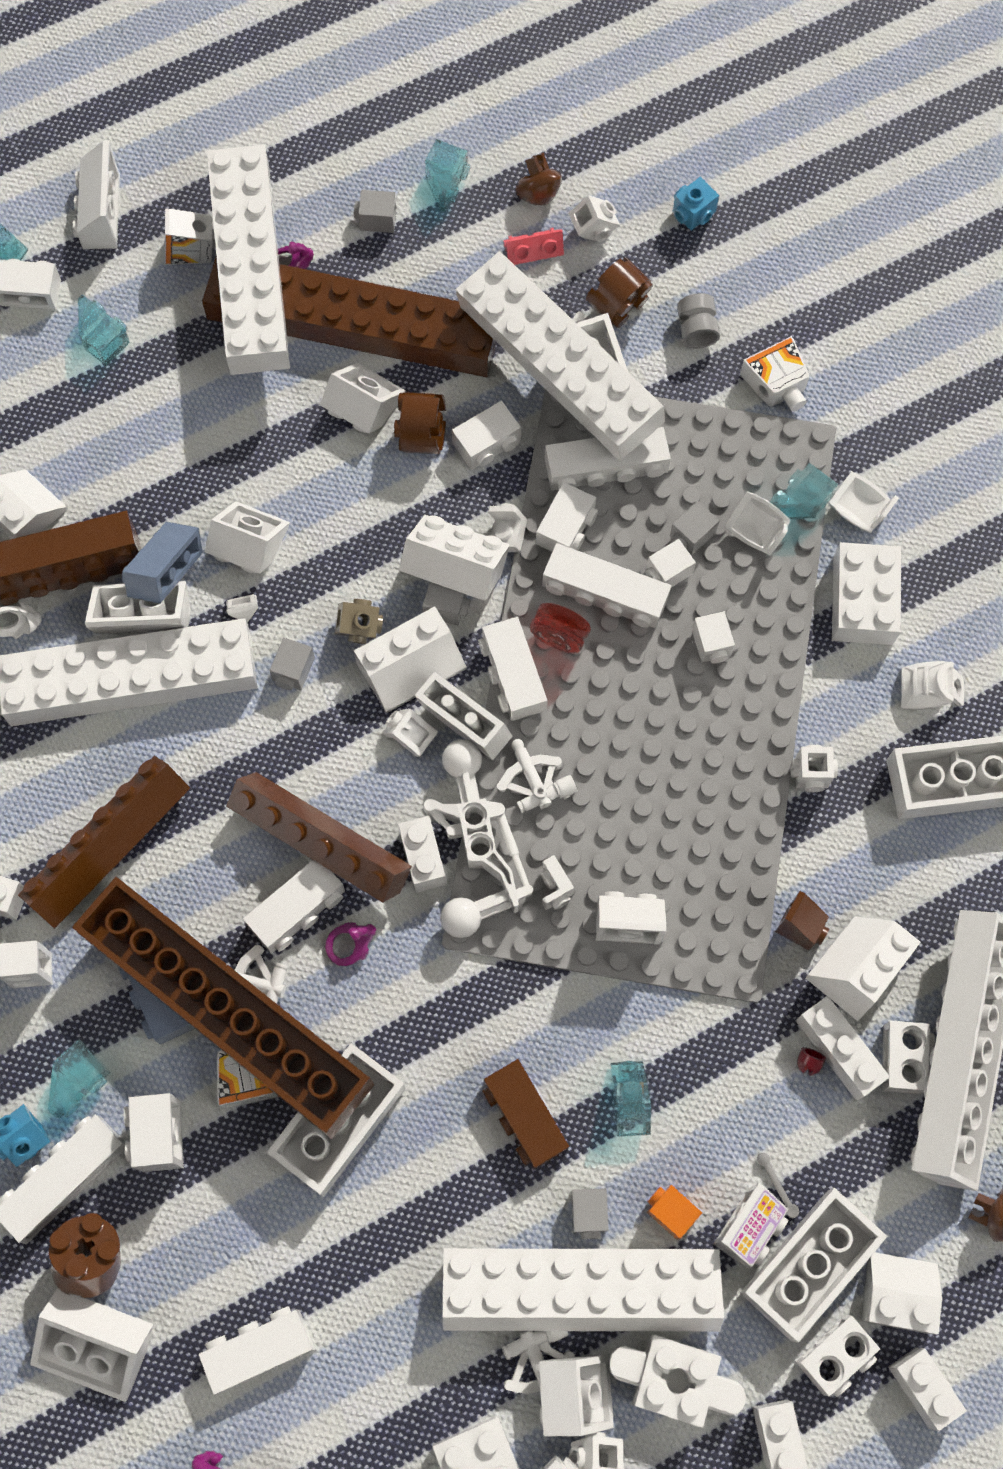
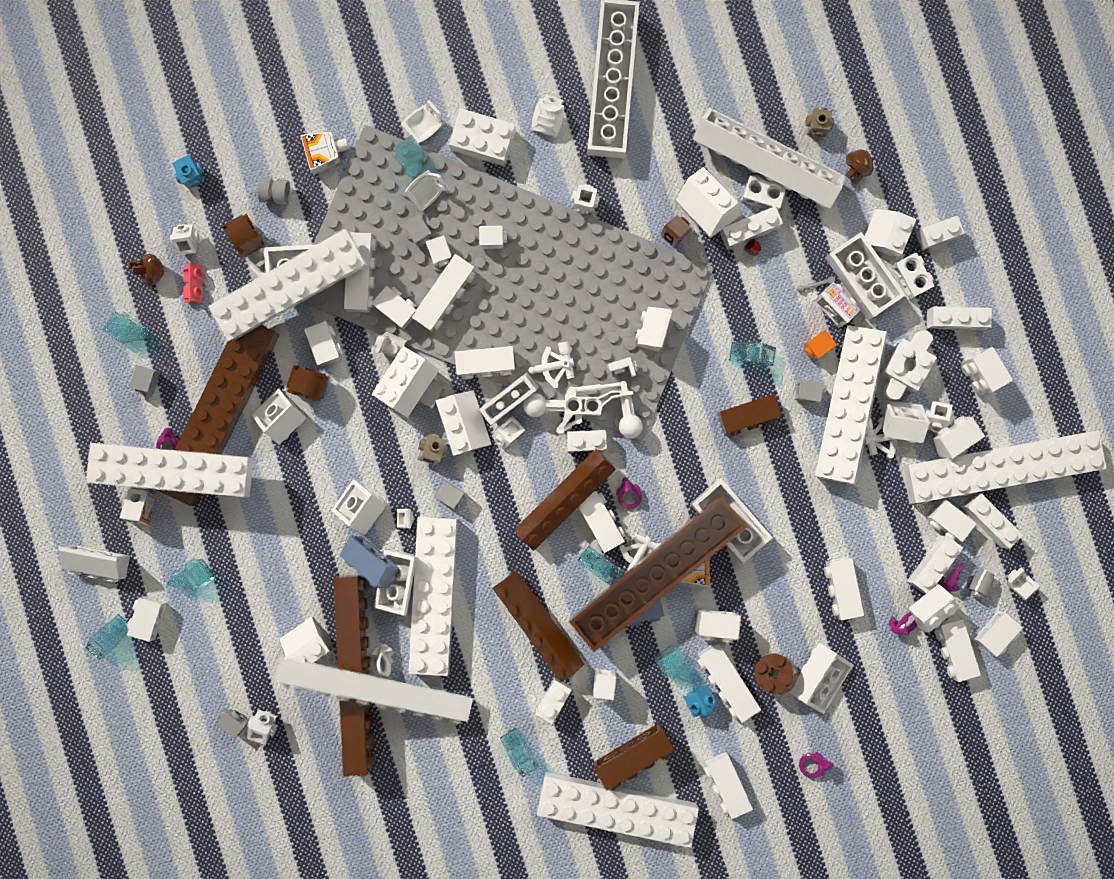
camera: 75 degrees left, 15 degrees up
(221, 919) = (600, 565): none -> clear light blue slope
(560, 627) = (465, 328): clear red head -> none

